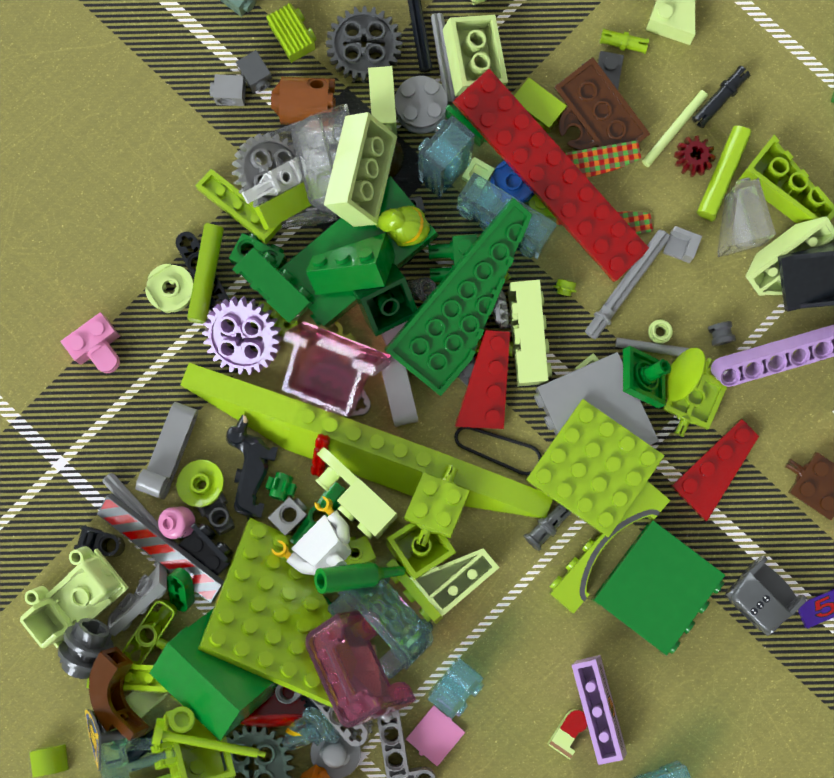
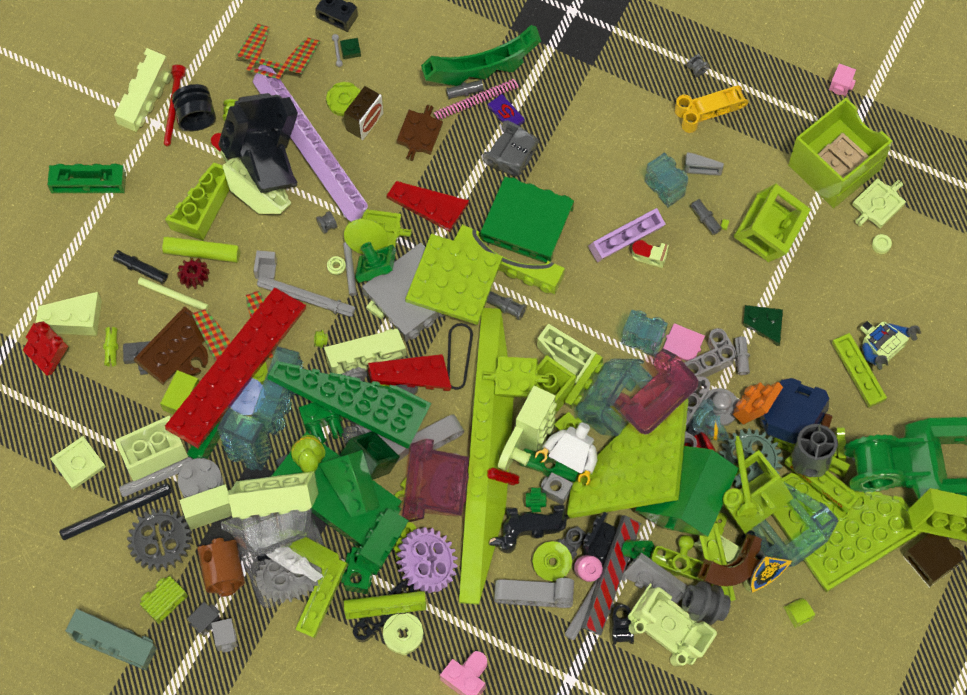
camera: 105 degrees left, 15 degrees down
(353, 576) = (589, 415): green piece -> none
(744, 219) = (235, 225): clear slope -> none

